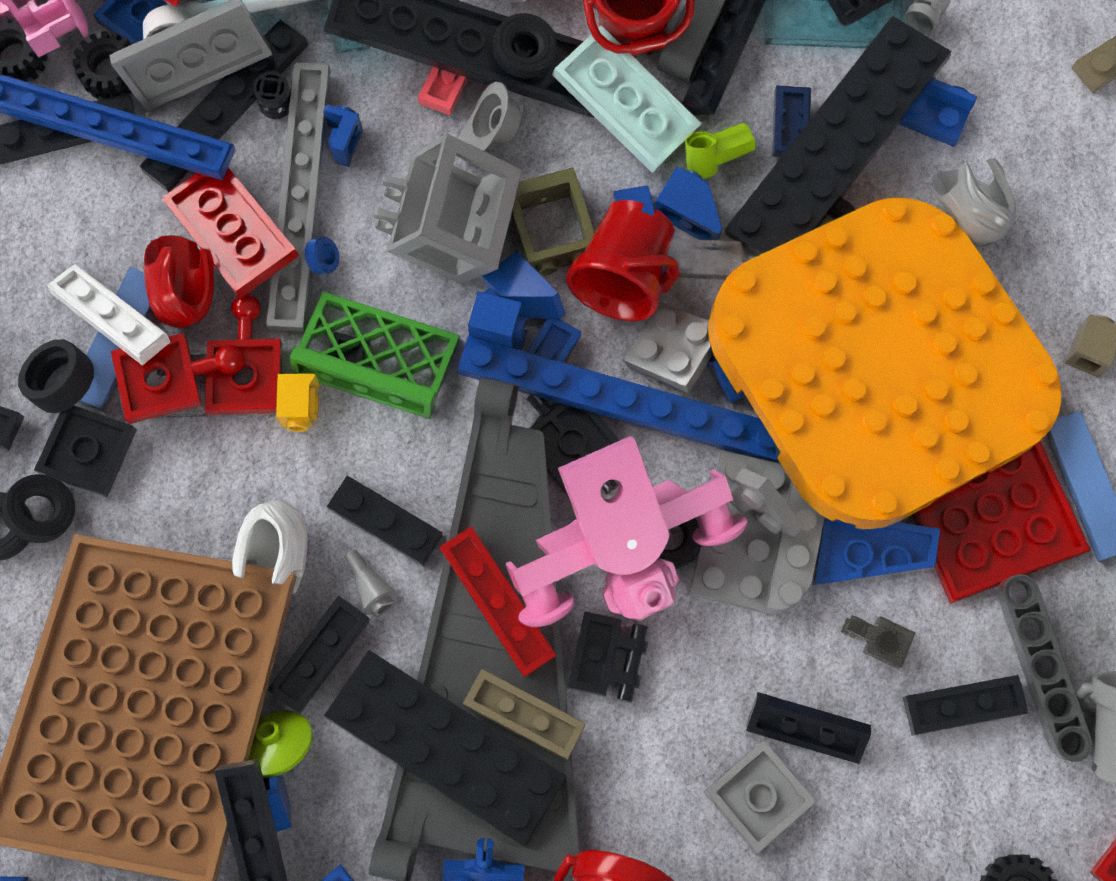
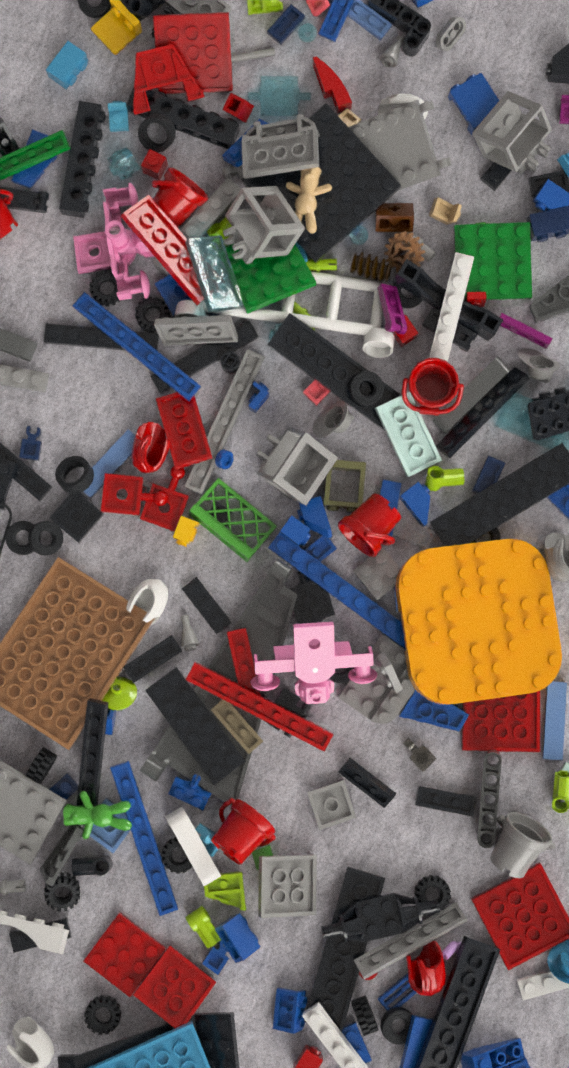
camera: 25 degrees right, 10 degrees up
(108, 314) = (109, 452): white tile -> none
(552, 660) = (259, 706): none -> red plate

